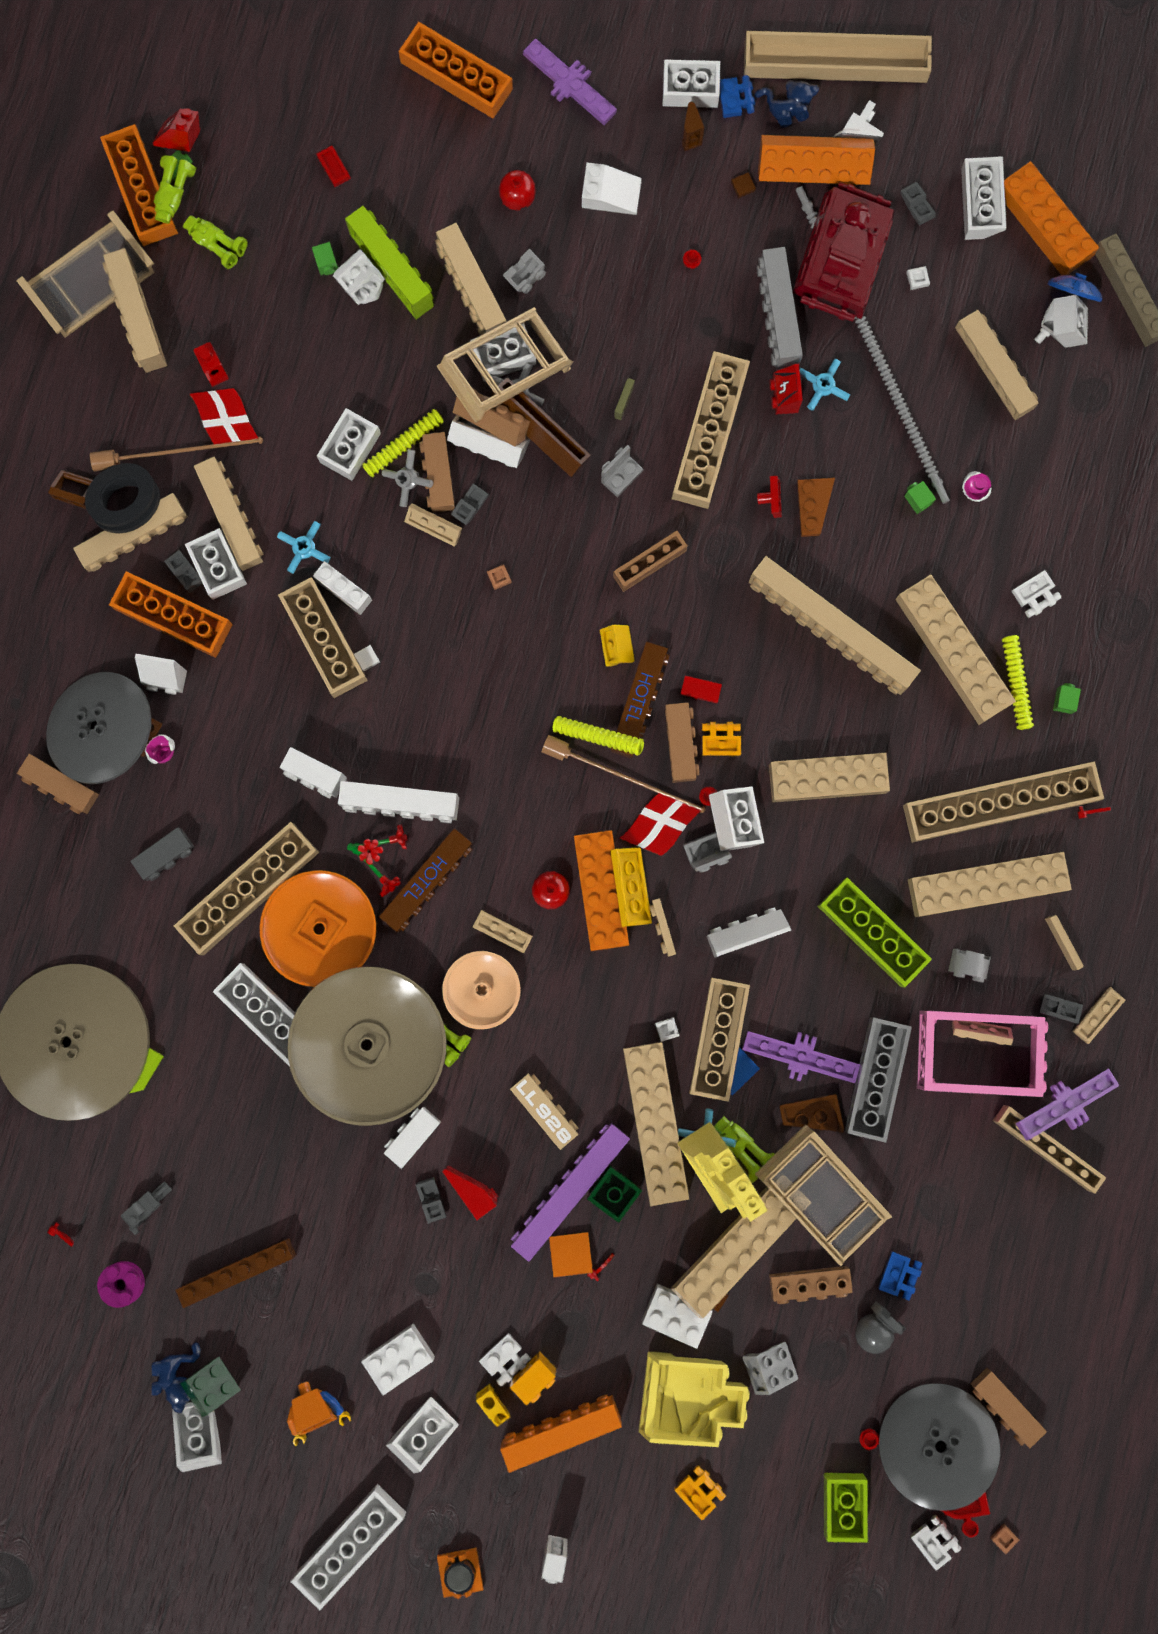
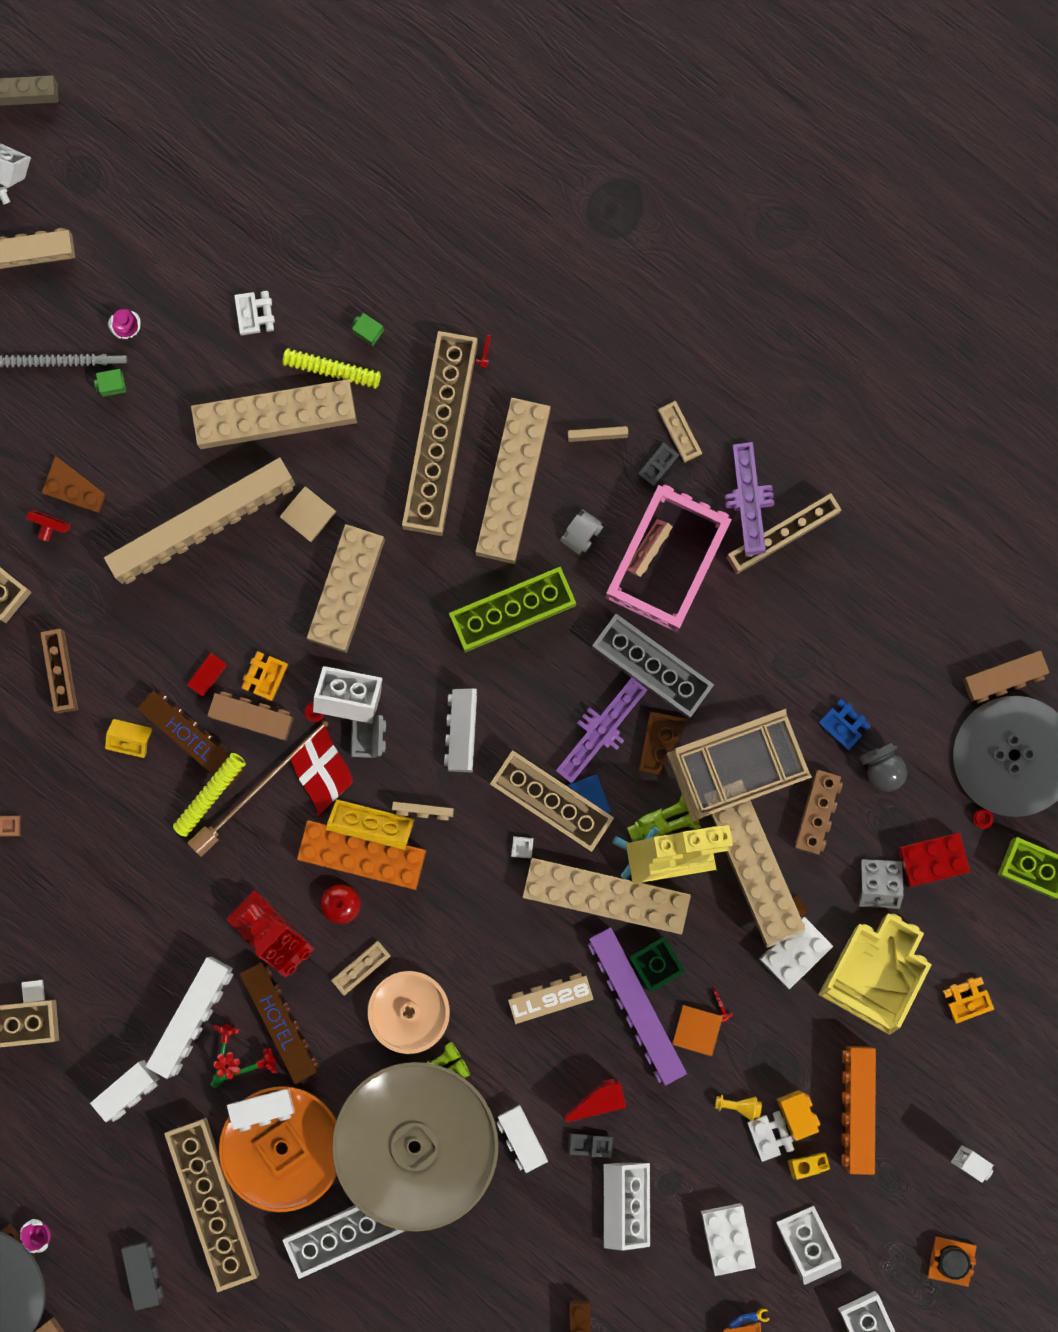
camera: 70 degrees left, 0 degrees up
(344, 897) = (261, 1110): none -> white brick
(391, 1255) = (626, 1205): none -> white slope
(498, 840) = (270, 934): none -> red brick
(521, 1329) = (749, 1107): none -> yellow piece
(813, 1409) = (933, 860): none -> red brick
(879, 716) = (308, 514): none -> tan tile

